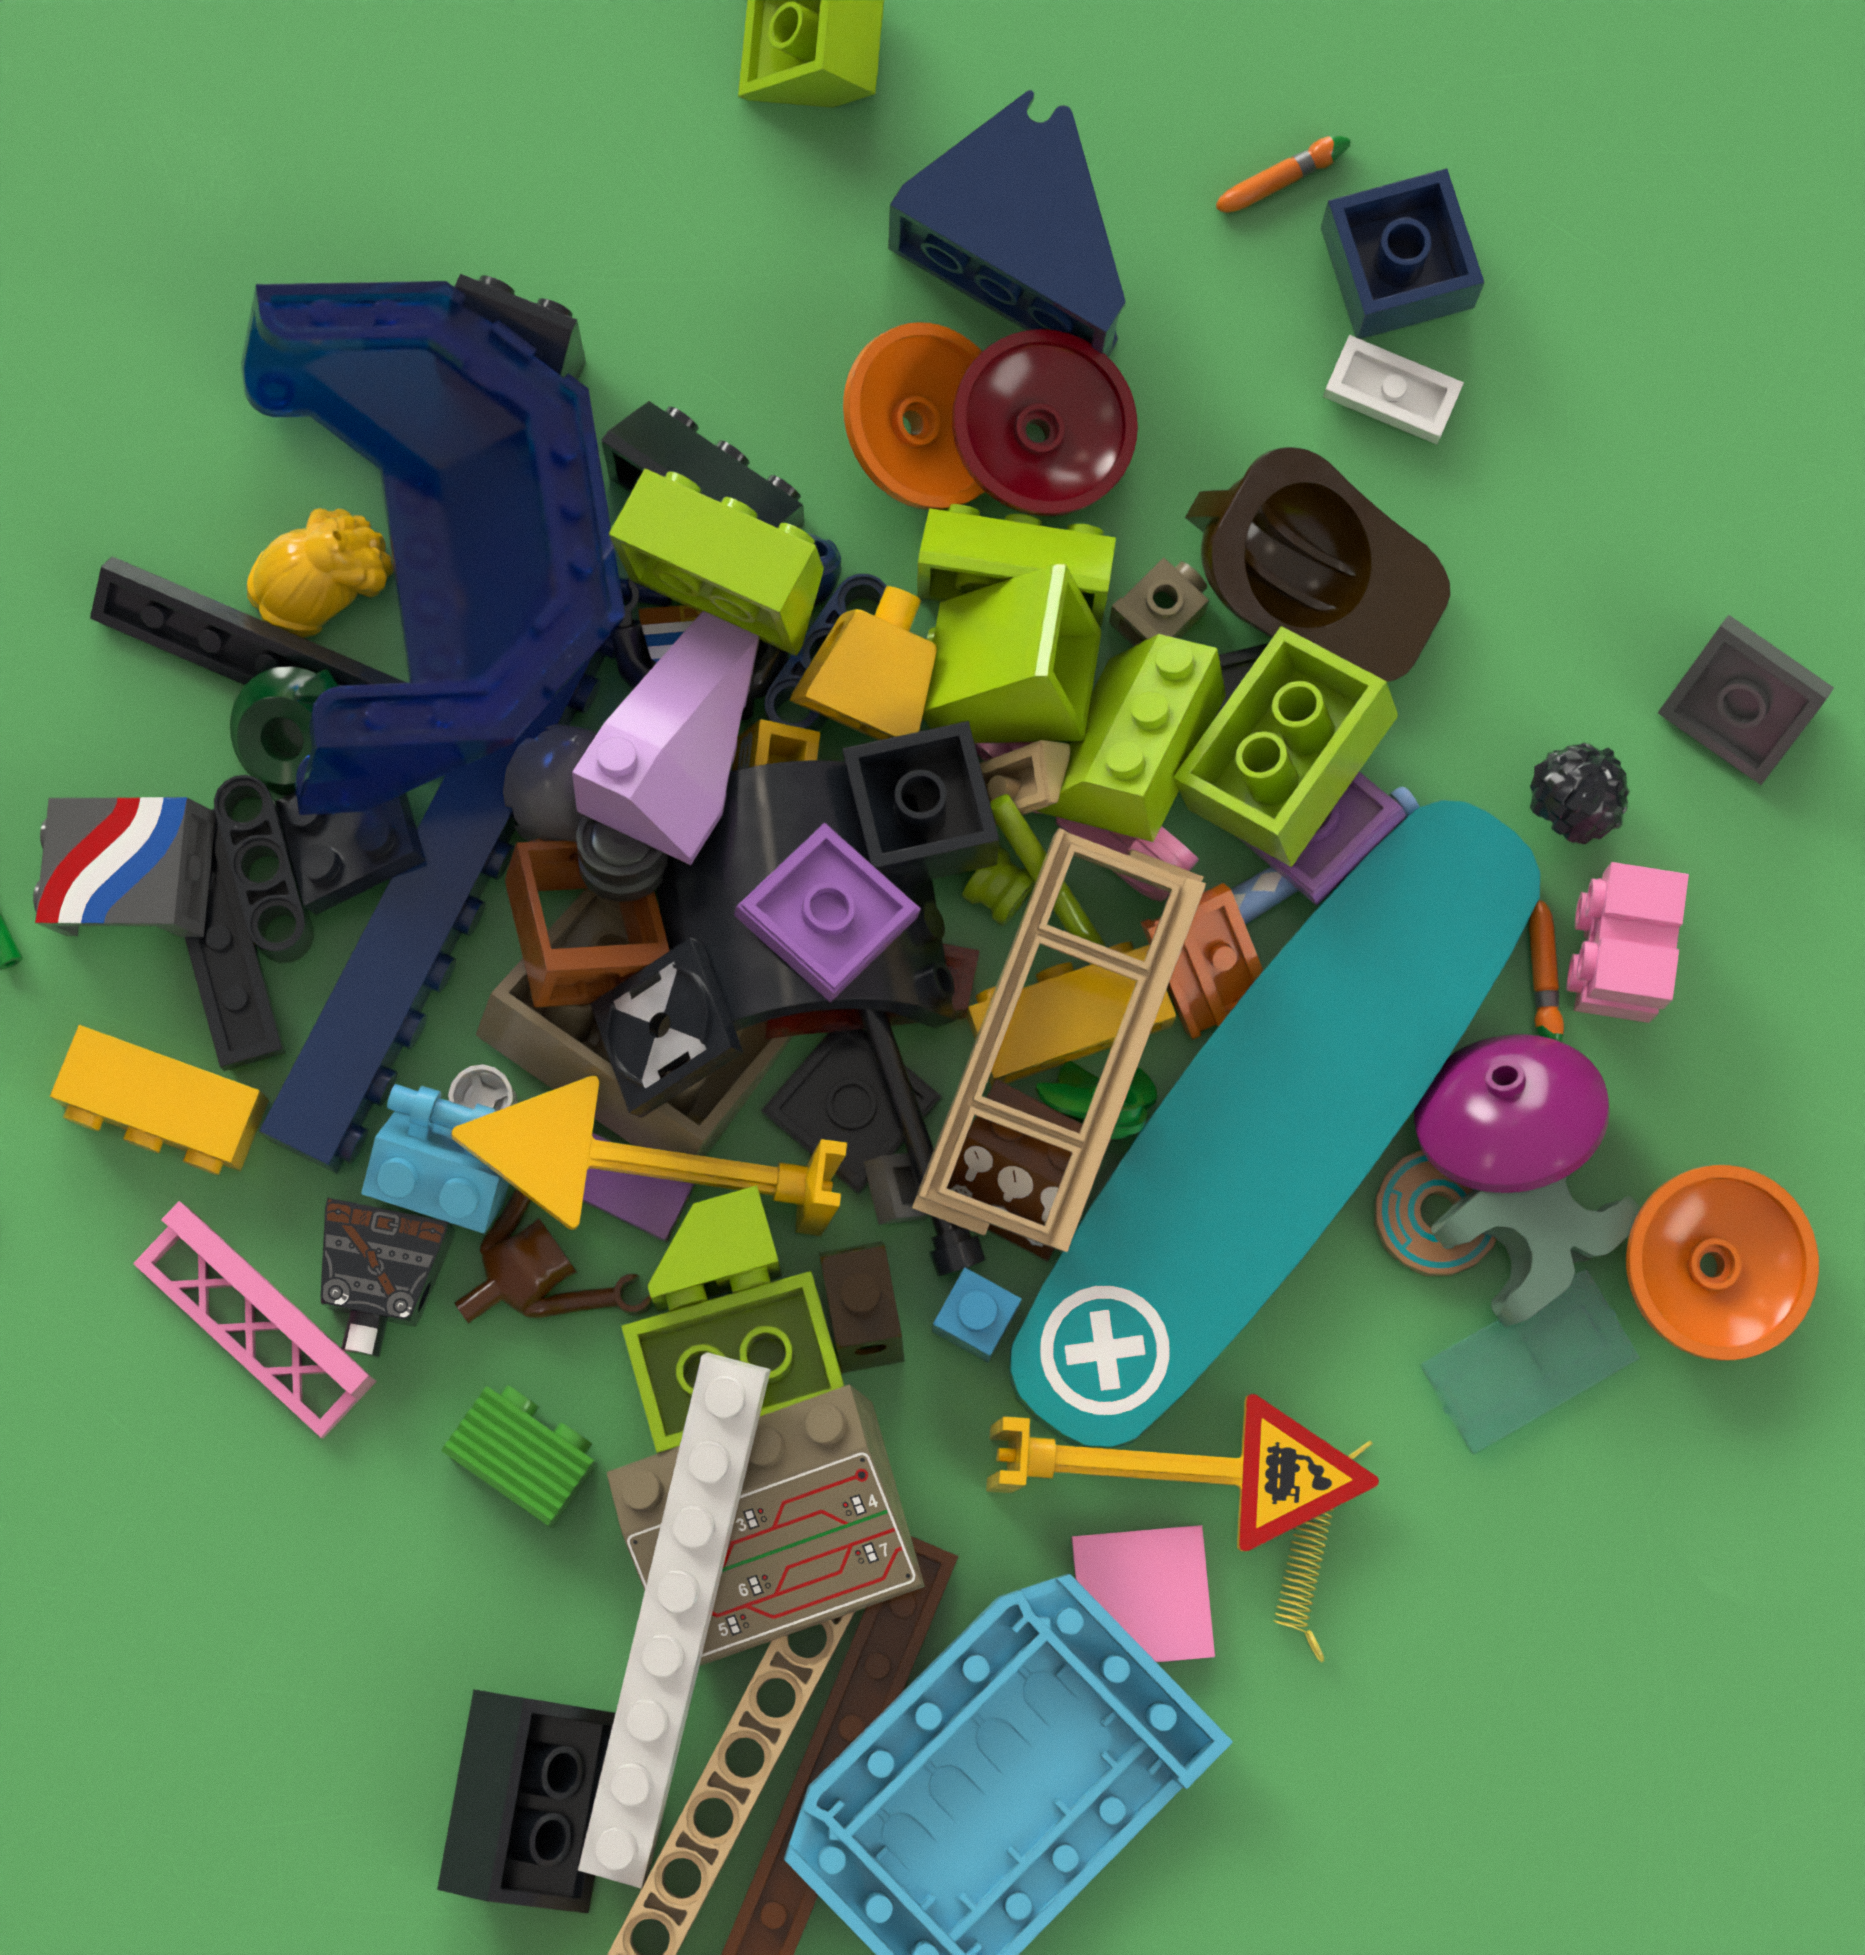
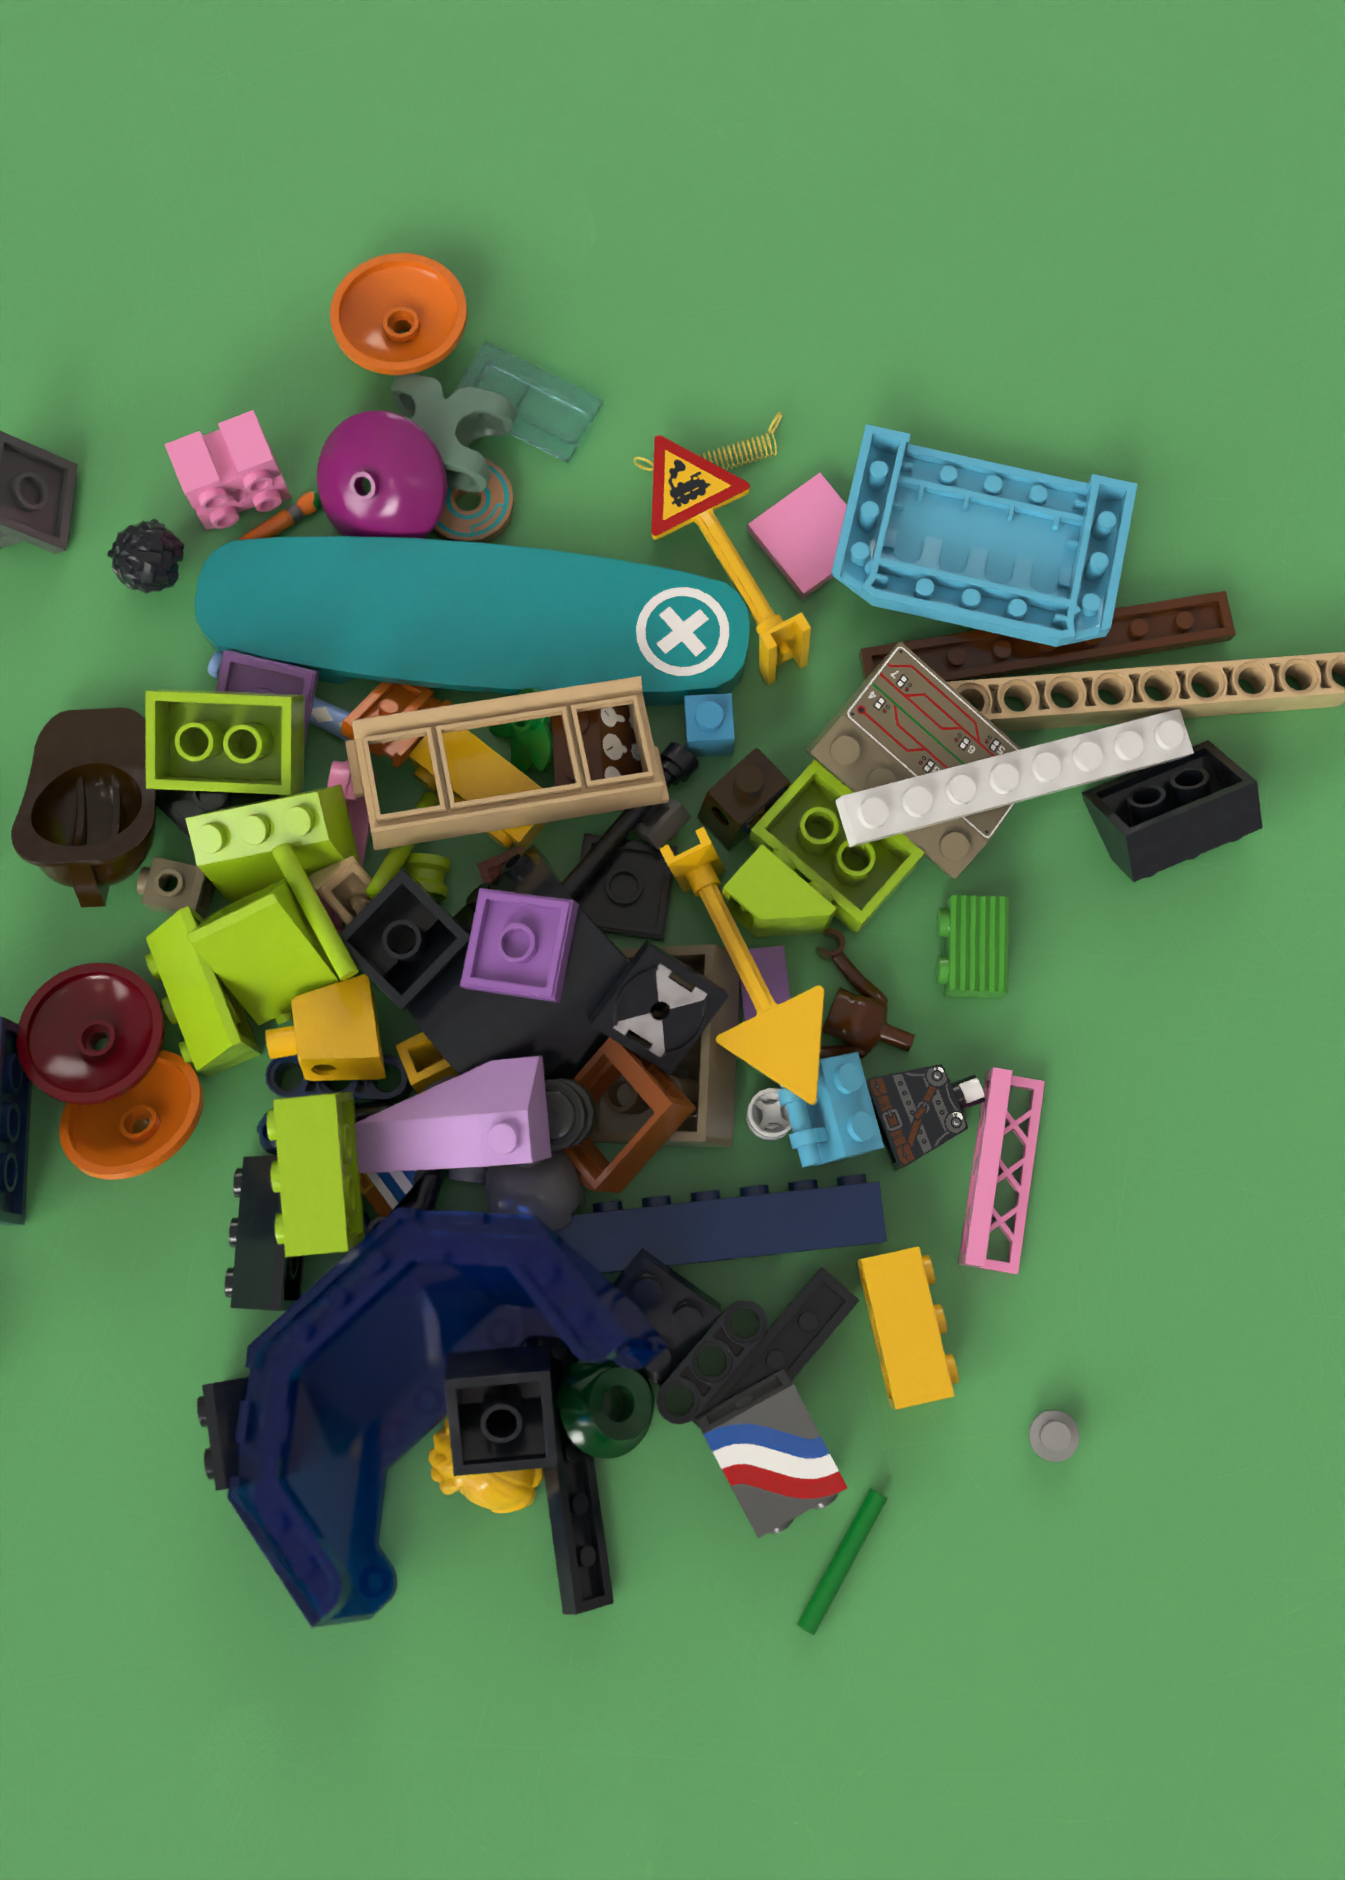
camera: 120 degrees left, 0 degrees up
(353, 606) = (501, 1410): none -> black slope
(1012, 719) = (314, 911): none -> lime bar

